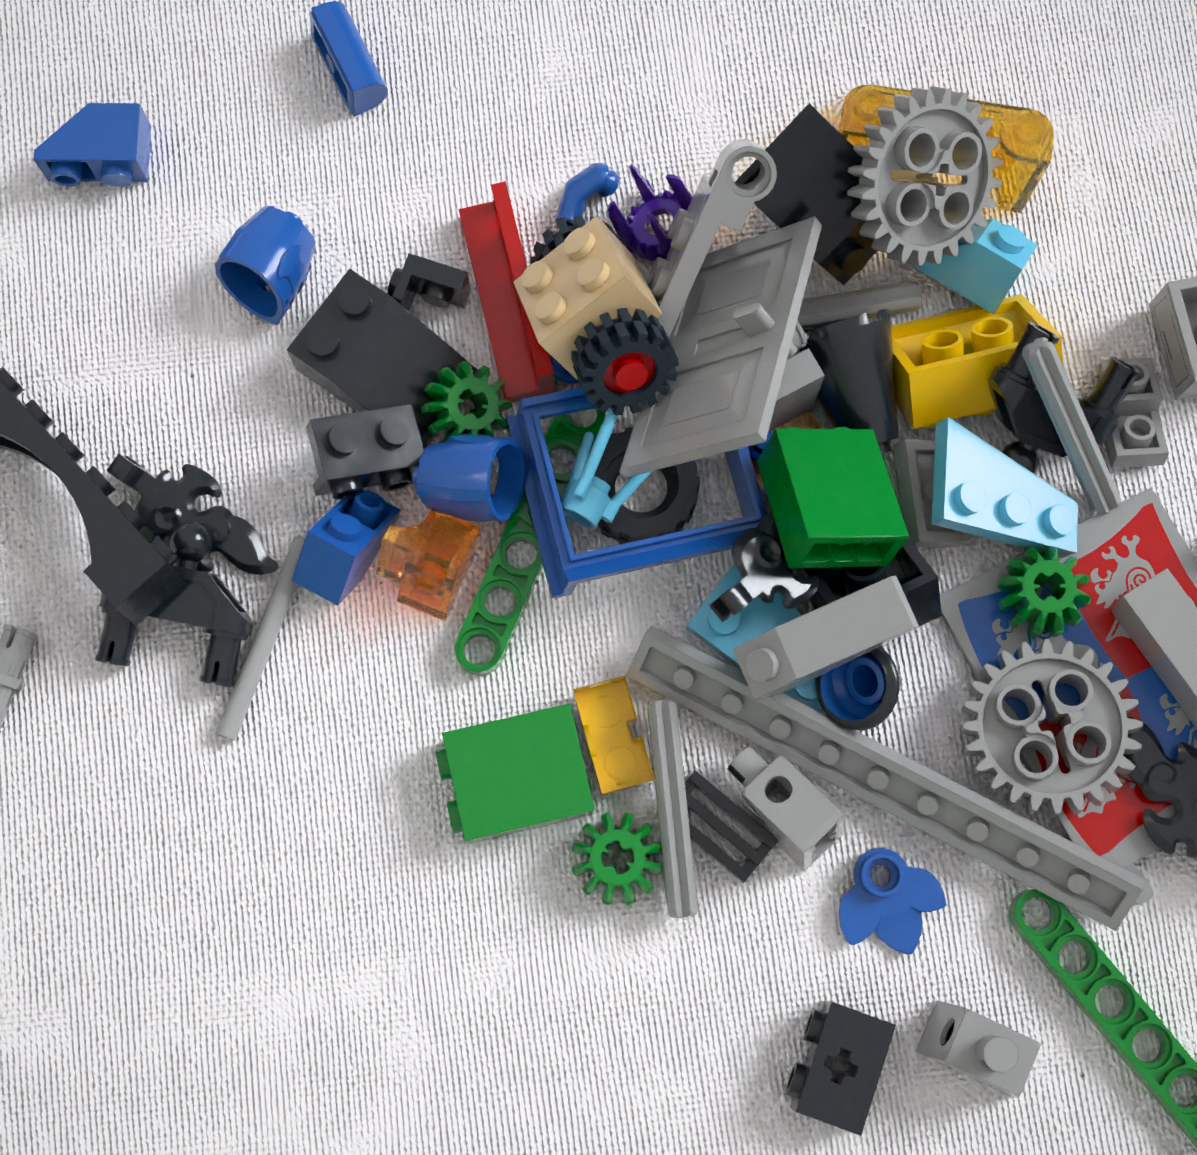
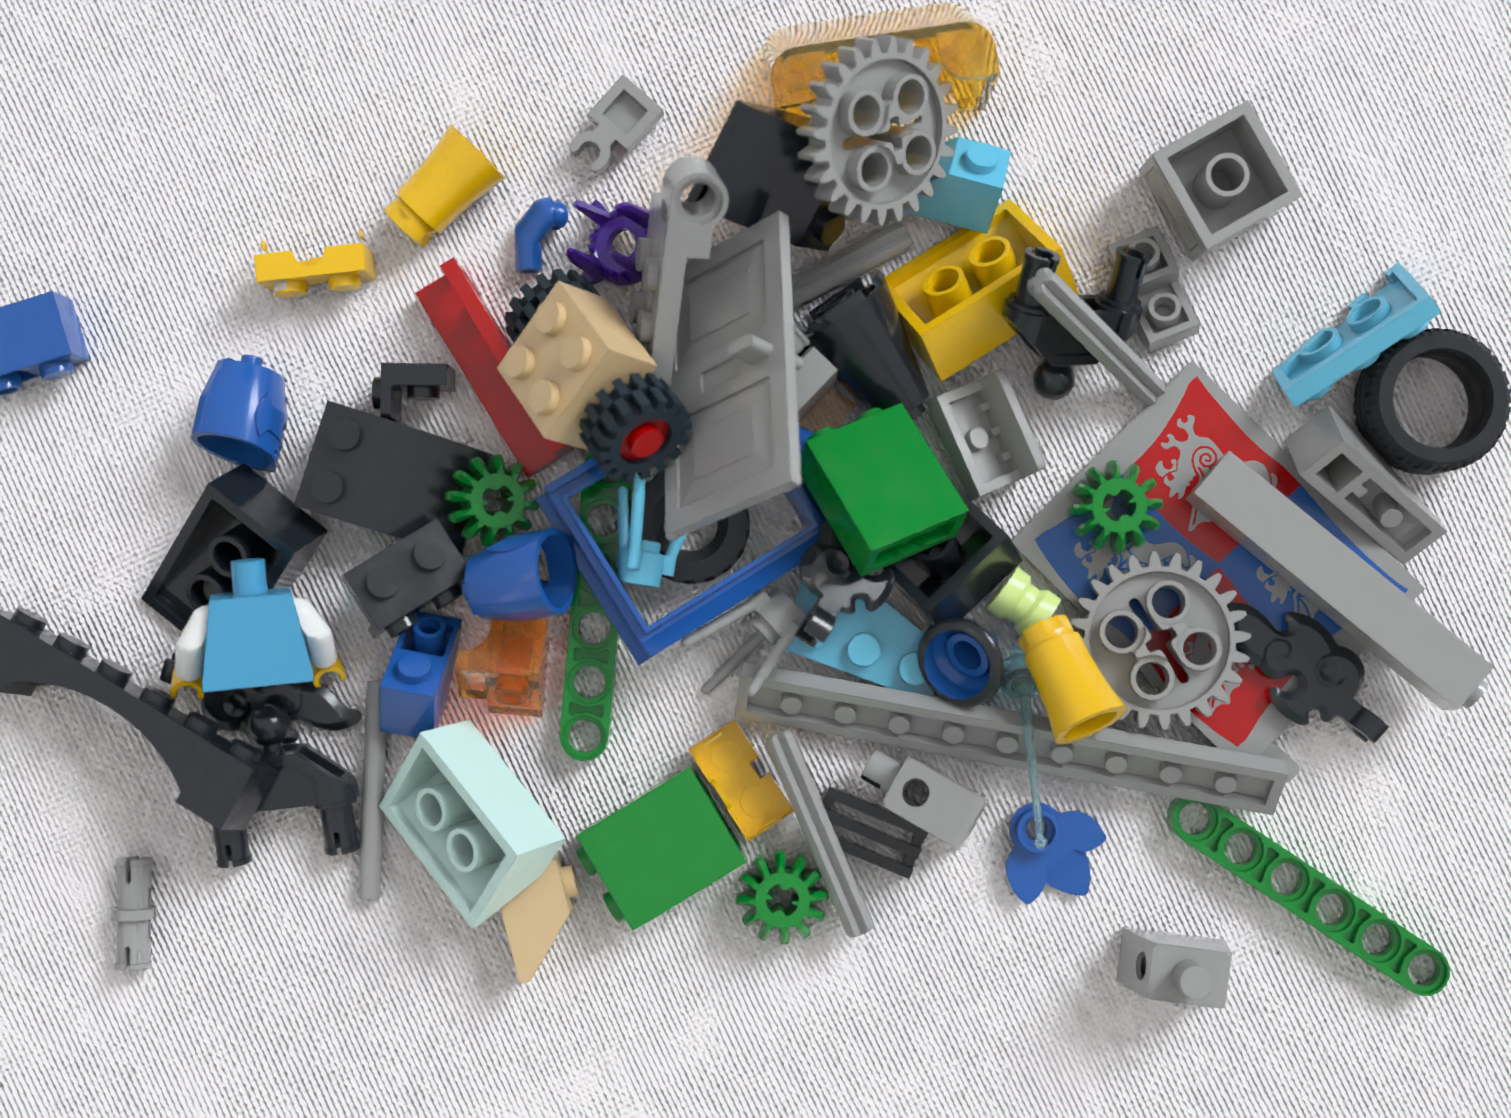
camera: 10 degrees left, 10 degrees up
(208, 451) = (253, 638): none -> dark azure torso
(211, 388) = (232, 521): none -> black slope
(346, 57) = (246, 165): blue brick -> none
(347, 686) = (470, 820): none -> light aqua slope
(379, 795) = (538, 915): none -> tan slope
(400, 166) = (339, 266): none -> yellow piece
(516, 125) = (442, 187): none -> yellow plant
(689, 596) = (774, 619): none -> light grey plant
(690, 118) = (621, 119): none -> light grey plate
(825, 638) = (917, 636): light grey slope -> none
(850, 1095) = (1064, 1050): black brick -> none
(910, 726) = (1020, 685): none -> clear light blue sword
(929, 655) = (1021, 601): none -> yellowish green wheel
(956, 732) = (1068, 681): none -> yellow plant
(996, 497) = (1042, 428): wing -> none

